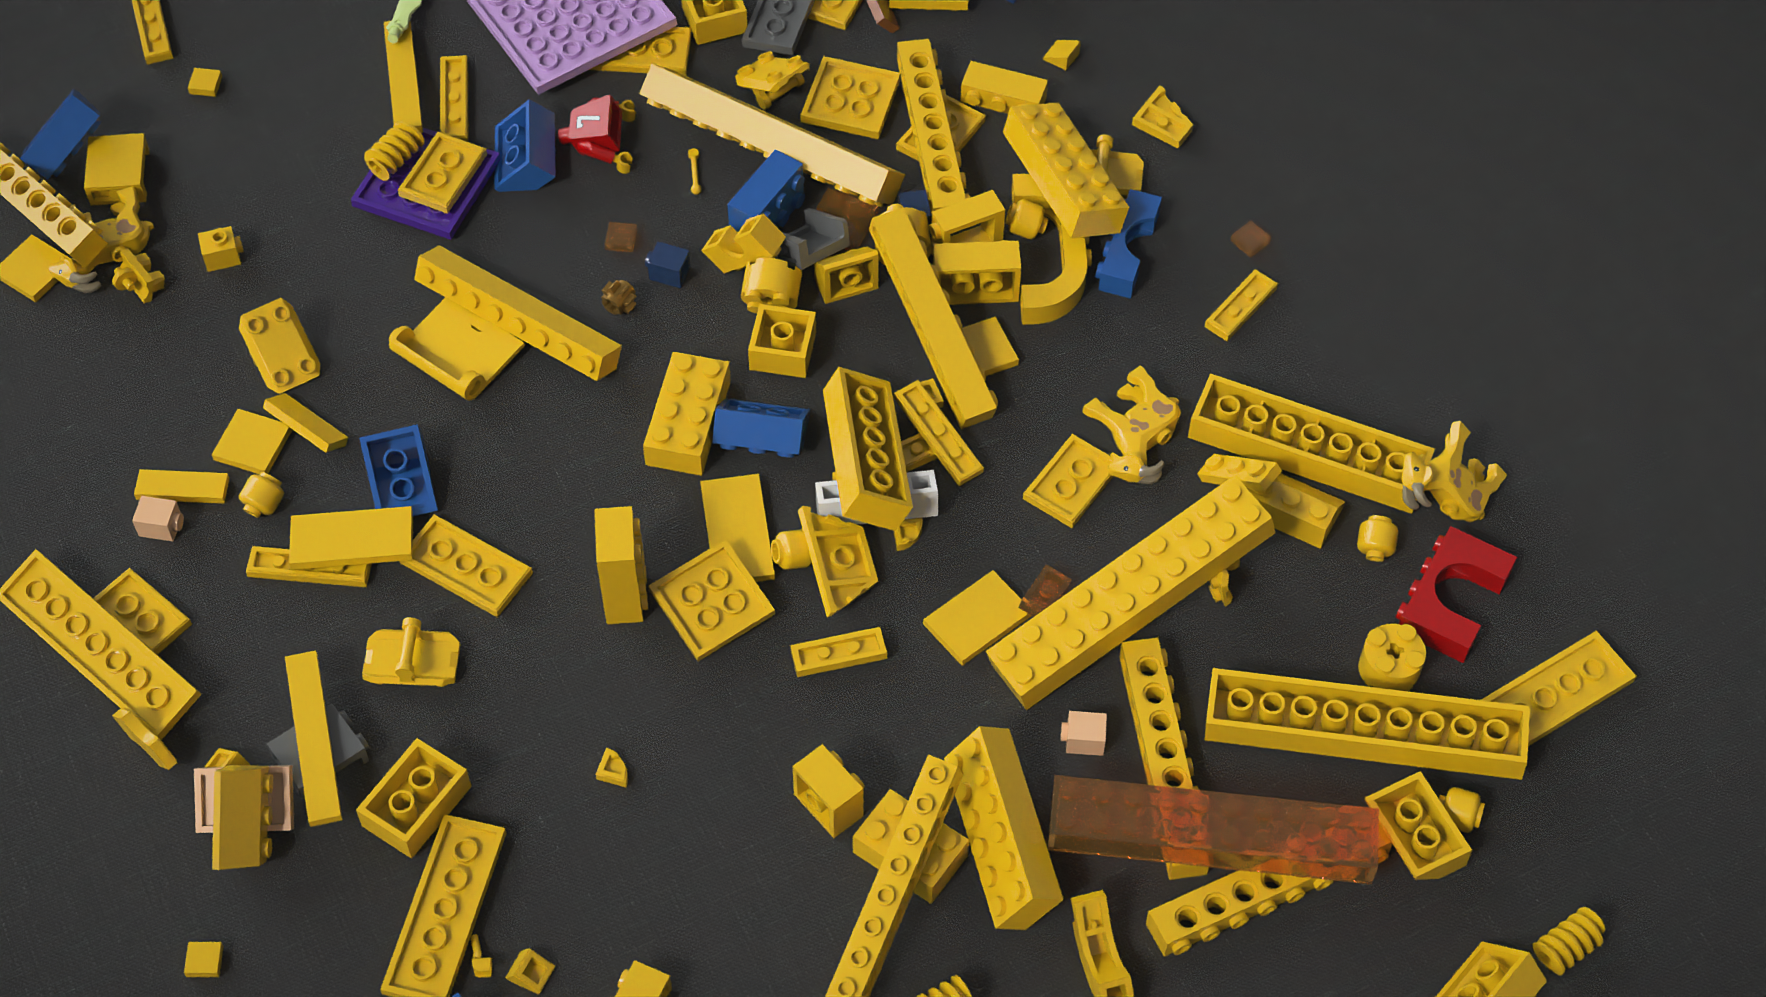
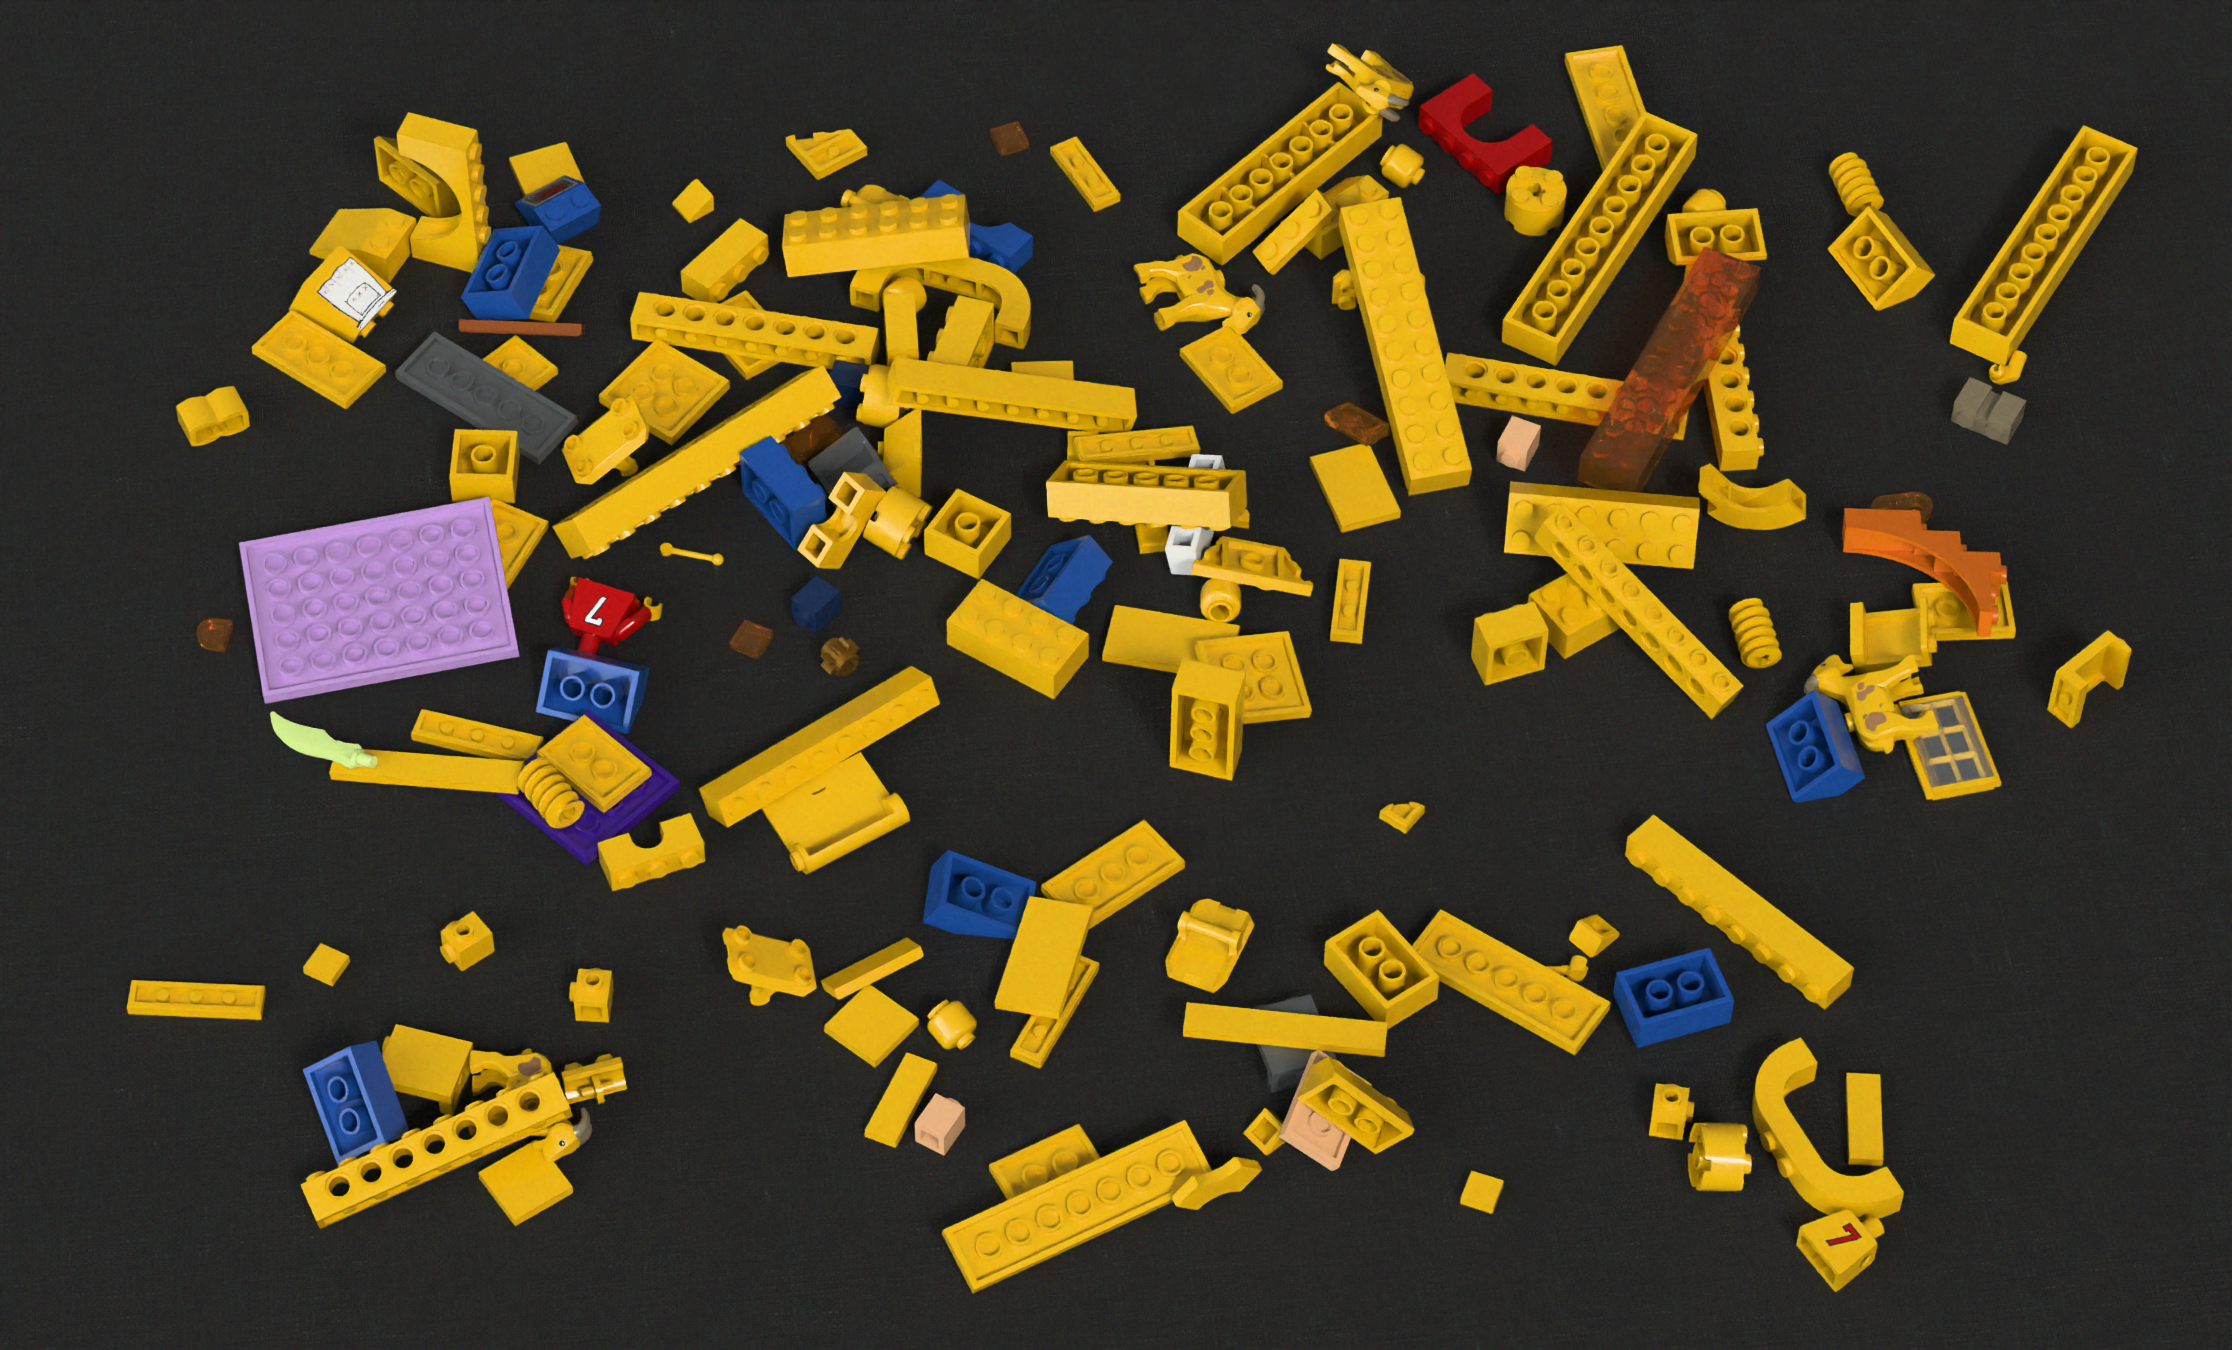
camera: 70 degrees left, 5 degrees down
(247, 154) = (466, 941): none -> yellow brick
(384, 254) = (629, 864): none -> yellow arch

